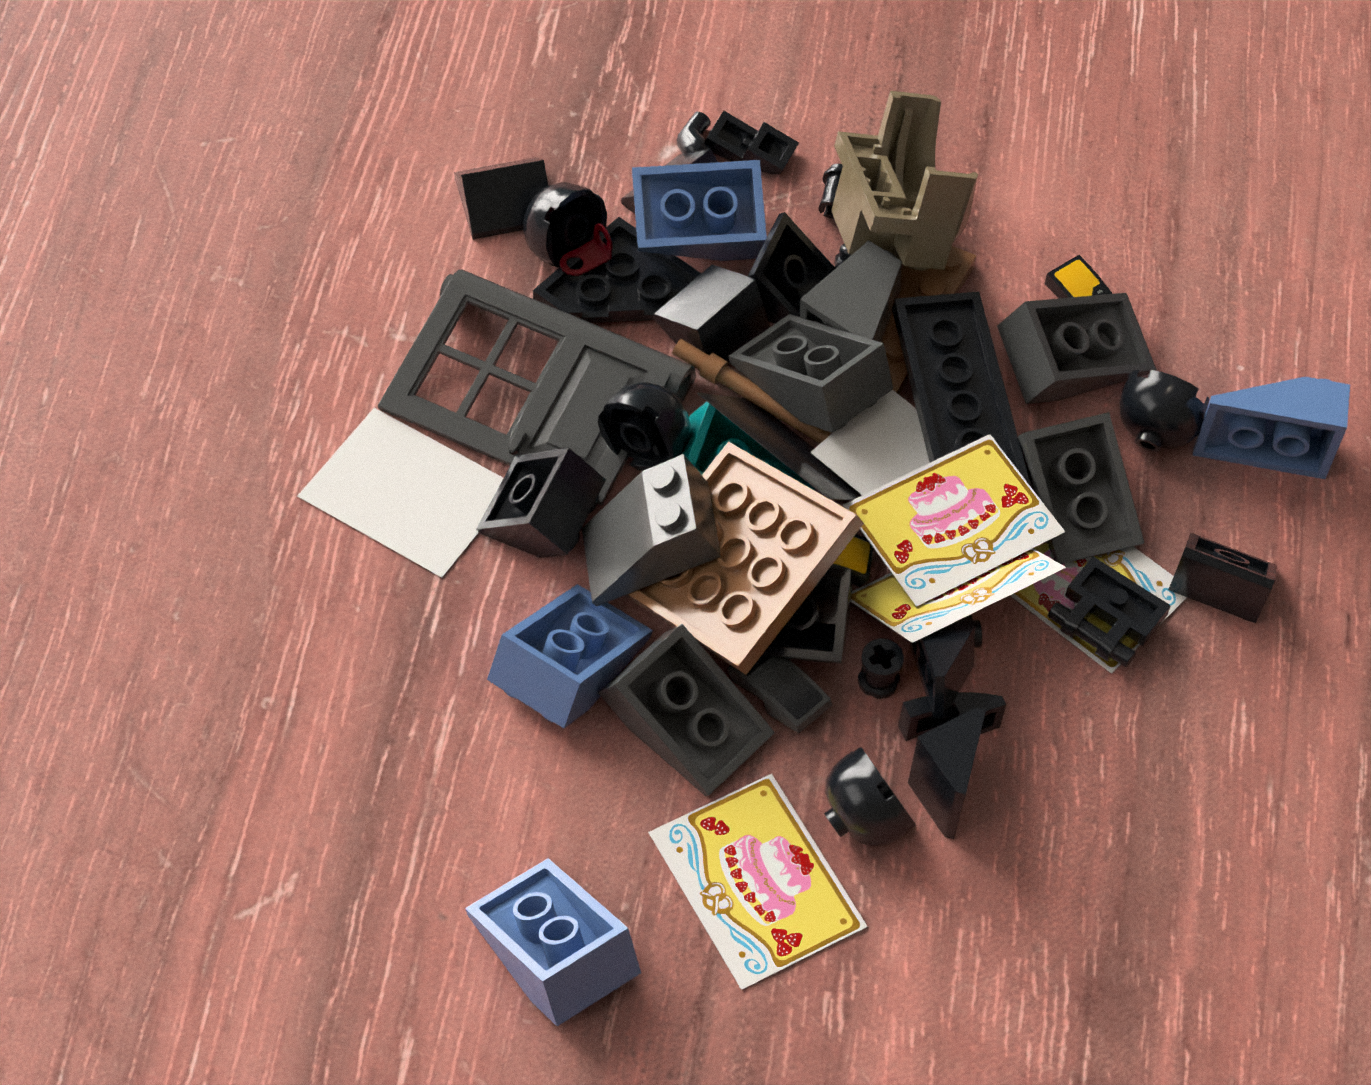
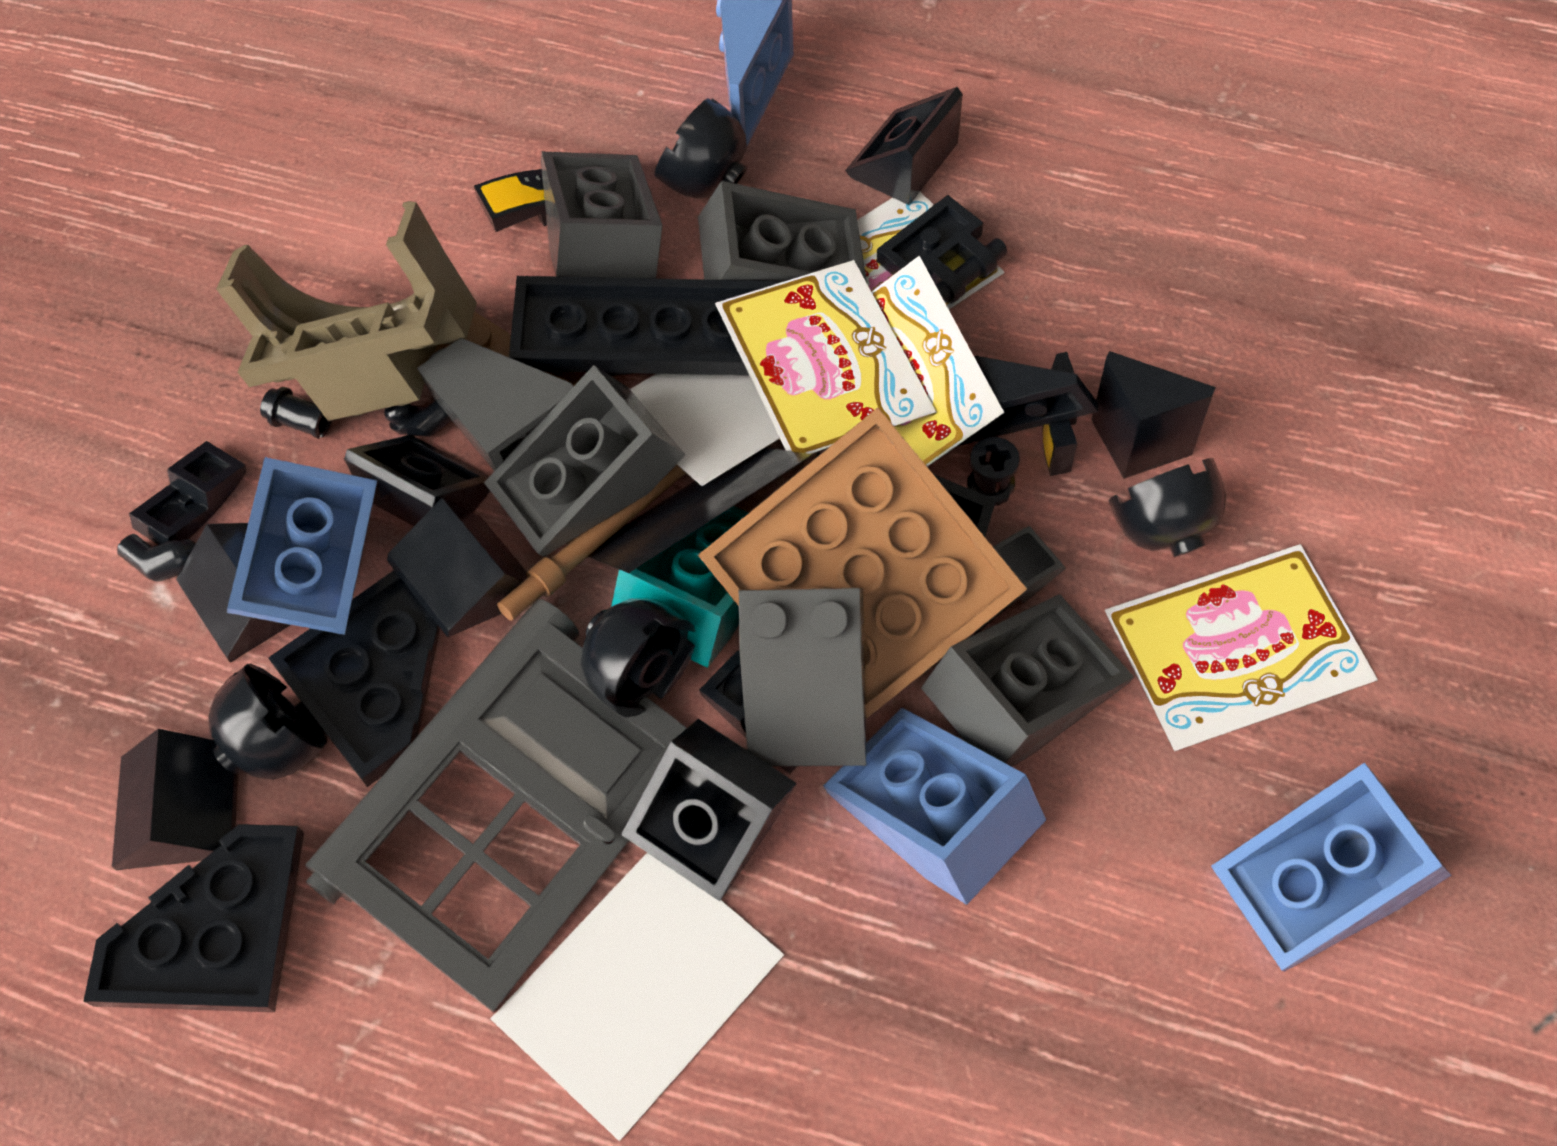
camera: 75 degrees left, 5 degrees up
(413, 232) = (208, 933): none -> black plate
(592, 253) = (321, 696): dark red piece -> none

